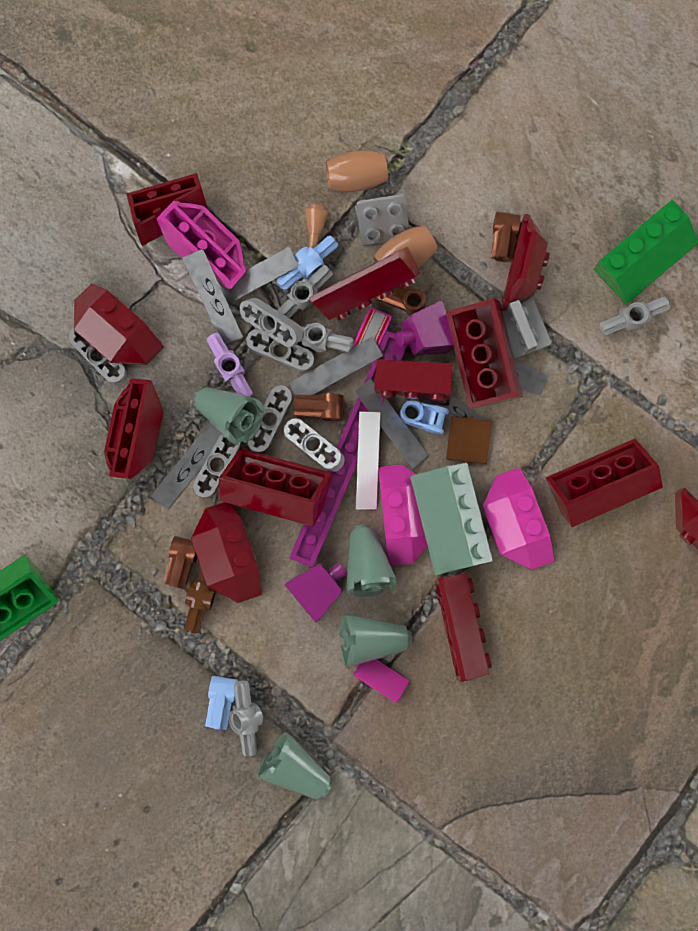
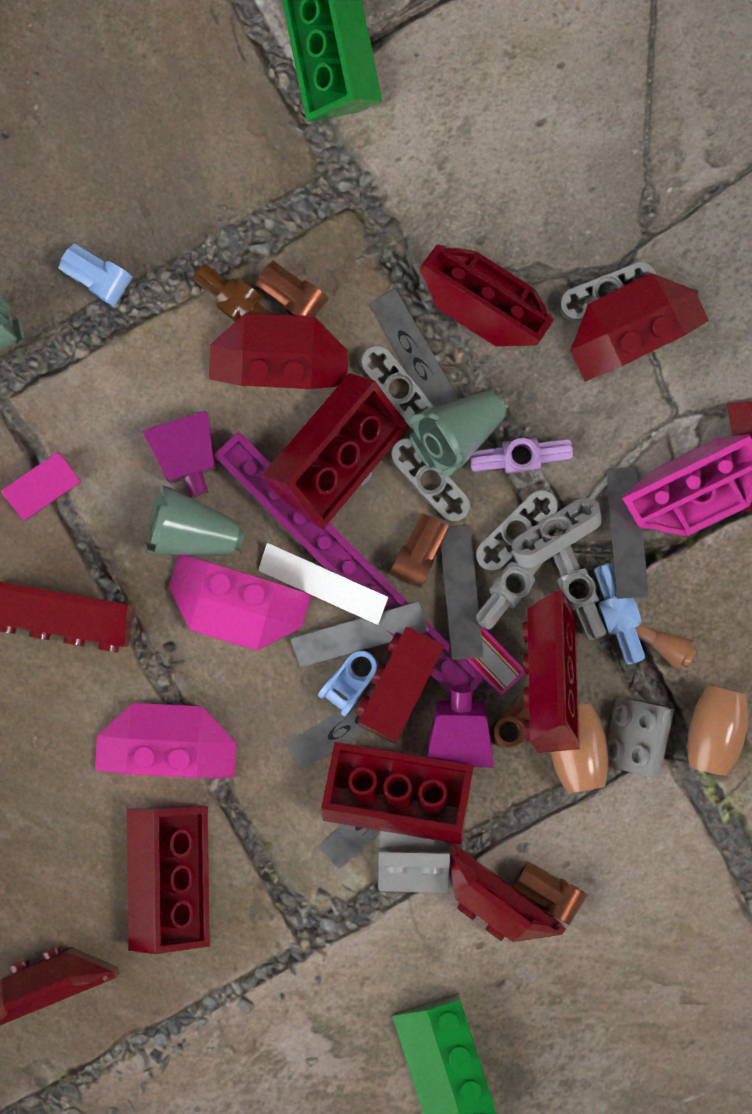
camera: 115 degrees right, 5 degrees up
(212, 296) = (621, 469): flat silver sticker -> none
(245, 718) = (62, 296): light grey axle -> none
(303, 444) = (388, 503): light grey beam -> none
(371, 639) = (92, 492): sand green cone -> none
(451, 518) = (200, 657): sand green slope -> none
(468, 440) = (297, 727): reddish brown piece -> none
(645, 312) = (369, 1035): light grey axle -> none

